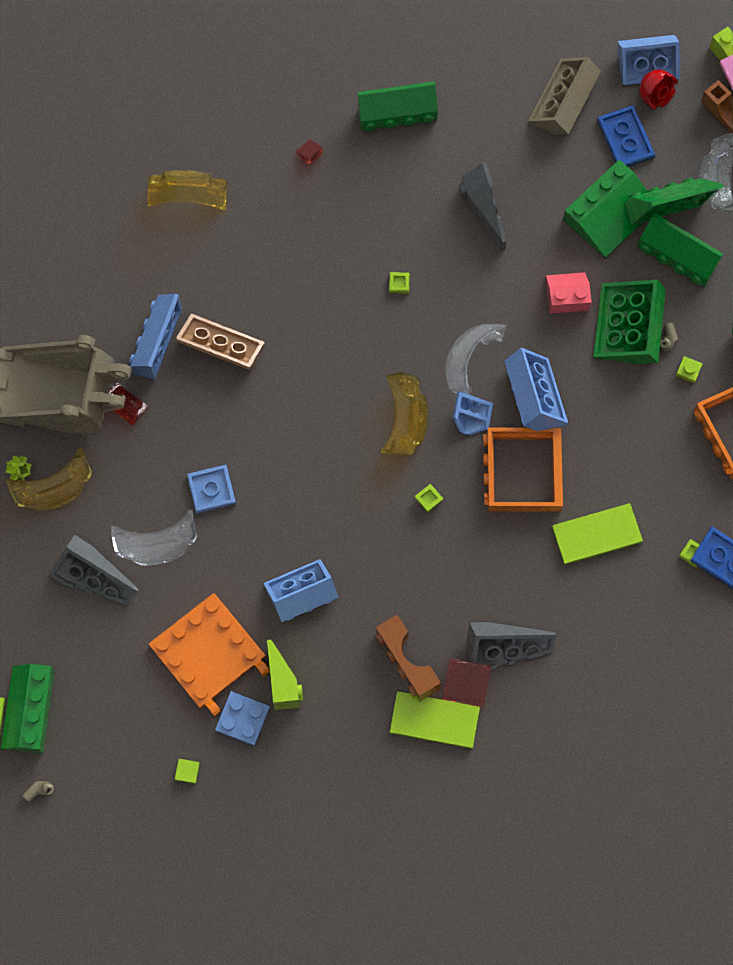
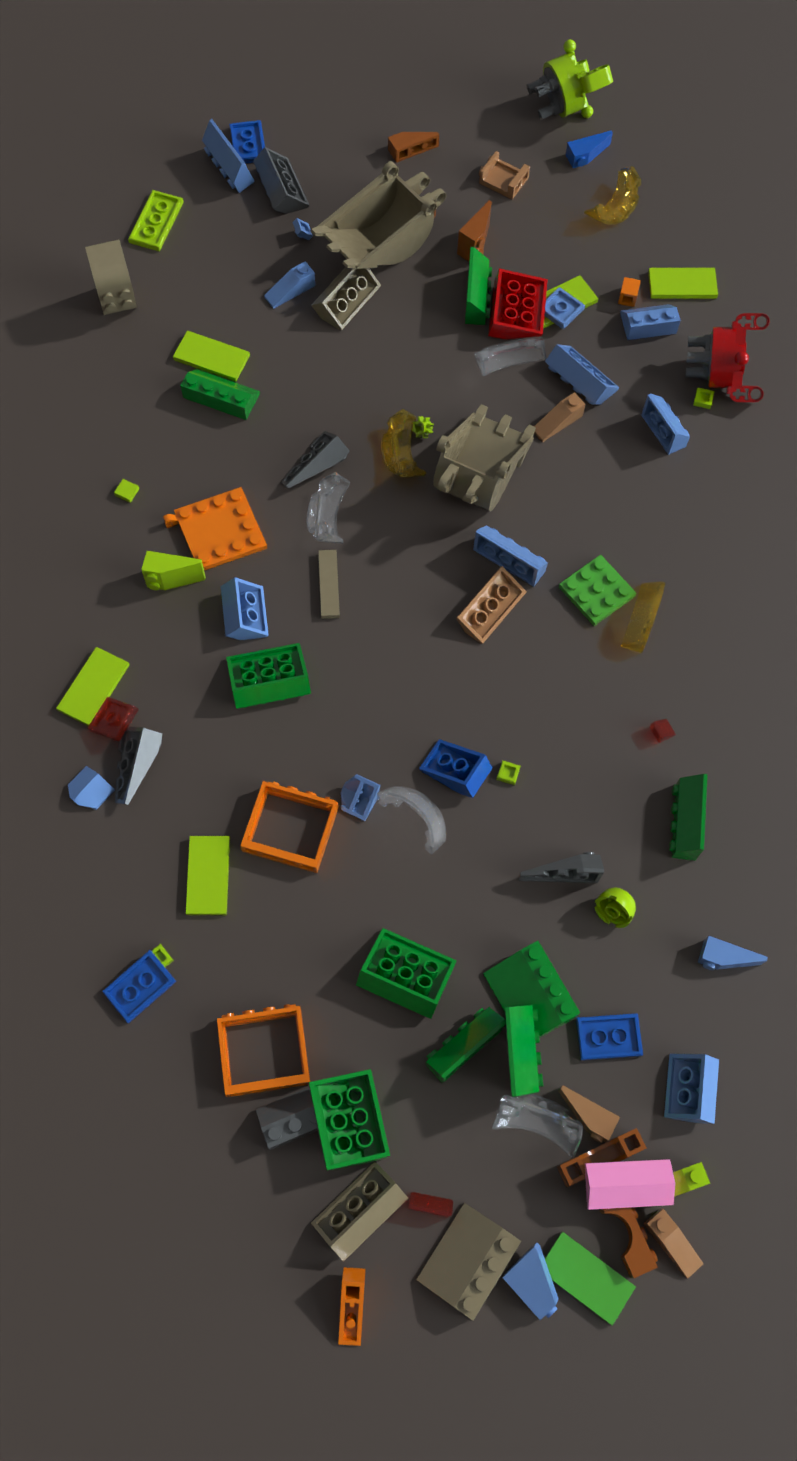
camera: 105 degrees right, 5 degrees down
(38, 788) = (155, 385): dark tan arm -> none
(133, 407) = (458, 521): clear red slope -> none
(169, 245) = (597, 590): none -> bright green plate
(211, 489) = (359, 567): medium blue tile -> none
(240, 514) = (329, 584): none -> dark tan tile
(242, 718) = (154, 538): medium blue plate -> none
(367, 542) = (268, 675): none -> green slope
(410, 415) = (370, 743): clear yellow windscreen -> none
(411, 331) = (457, 767): none -> blue slope
(421, 679) = (175, 670): dark orange arch -> none
(429, 498) = (291, 737): lime plate -> none
(505, 152) = (615, 906): none -> lime cylinder
(521, 54) = (724, 955): none -> medium blue slope
(535, 390) = (359, 856): medium blue slope -> none
(547, 683) = (89, 789): none -> medium blue slope
(565, 95) = (668, 987): dark tan slope -> none
(568, 293) = (456, 922): coral slope -> none
(657, 88) = (654, 1083): red cylinder -> none
(671, 337) = (378, 1008): dark tan arm -> none
(689, 369) = (341, 1016): lime plate -> none
(703, 133) = (594, 1118): none -> medium nougat slope

